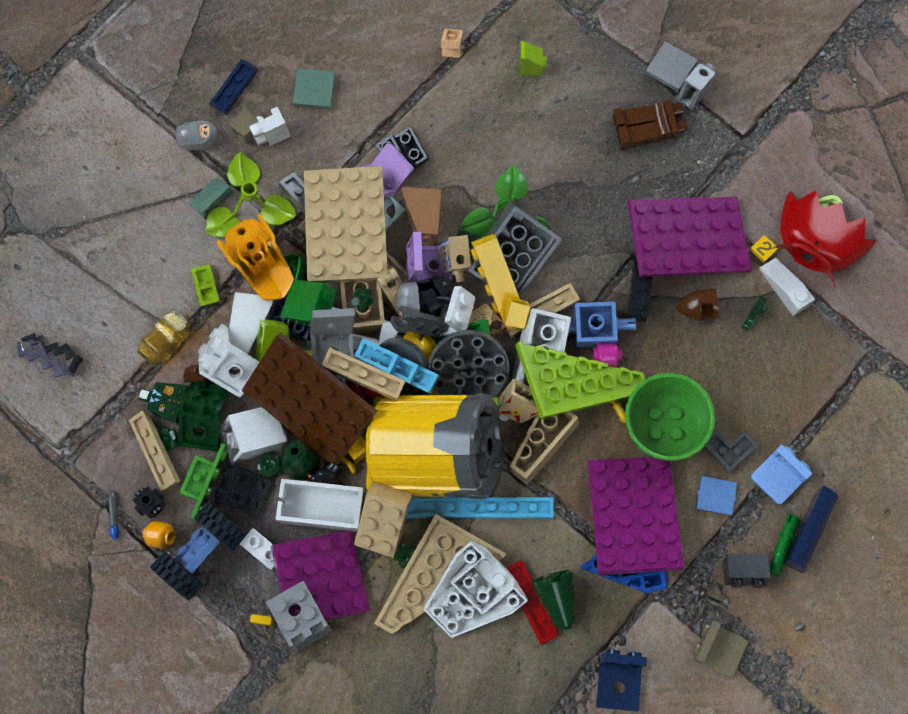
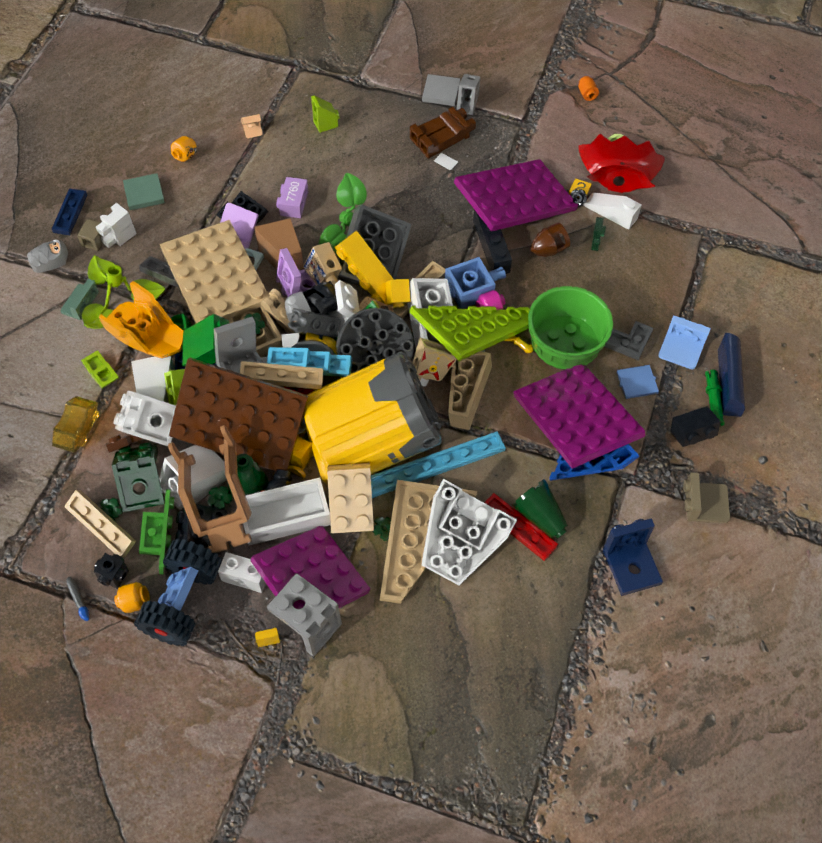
camera: 25 degrees left, 15 degrees down
(164, 400) = (95, 477): dark green torso -> none
(258, 506) = (225, 527): none -> medium nougat piece
(370, 50) = (183, 148): none -> light orange head
(459, 153) = (292, 197): none -> lavender brick
(637, 160) = (445, 161): none -> white sticker
(760, 260) = (581, 193): none -> black plate
(832, 123) = (588, 88): none -> orange brick

